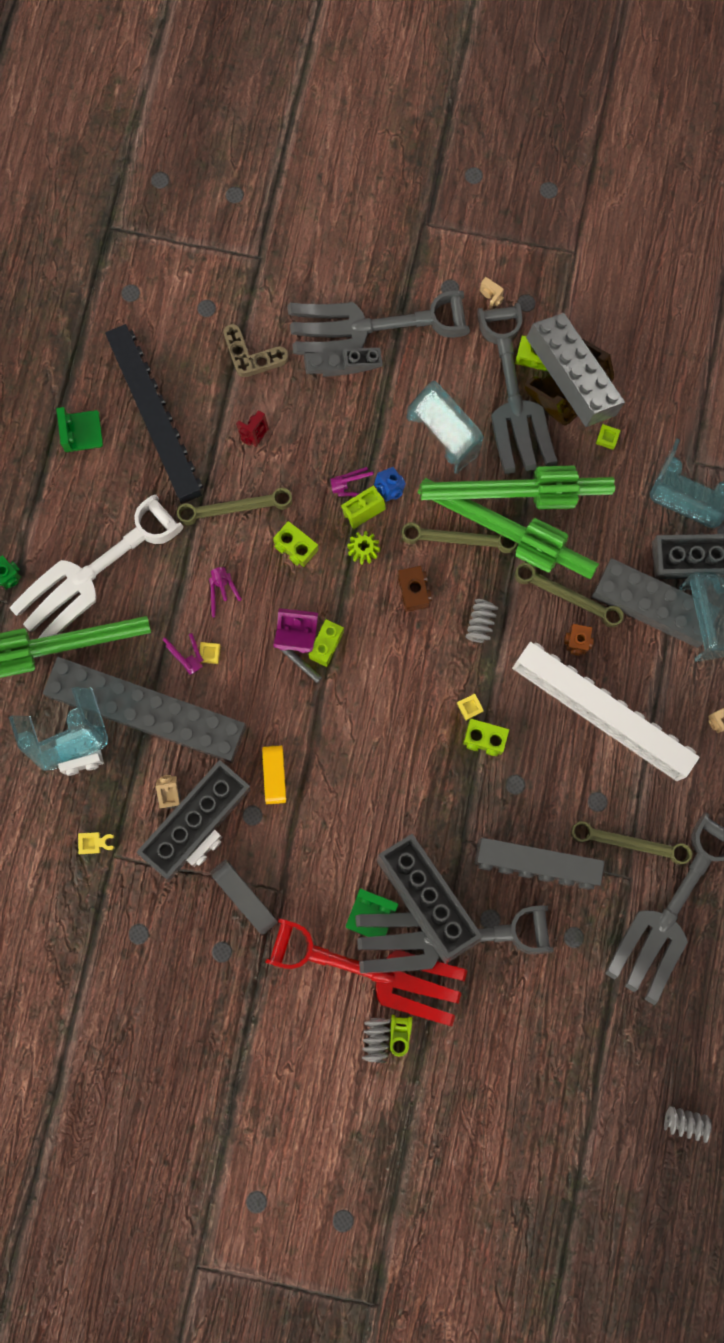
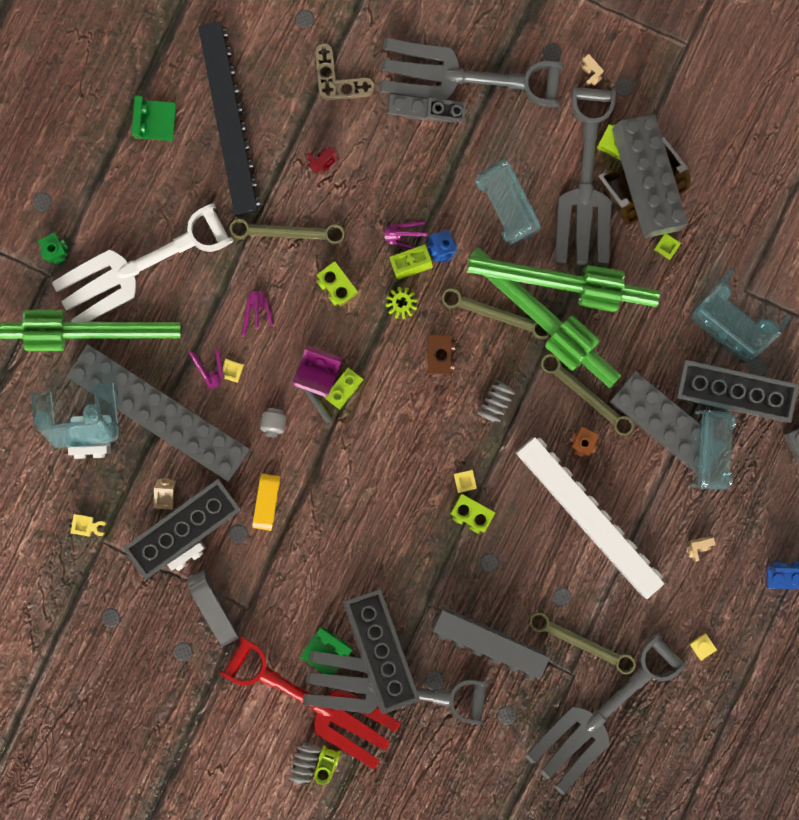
camera: 20 degrees right, 10 degrees up
(262, 693) = (273, 422): none -> light grey head

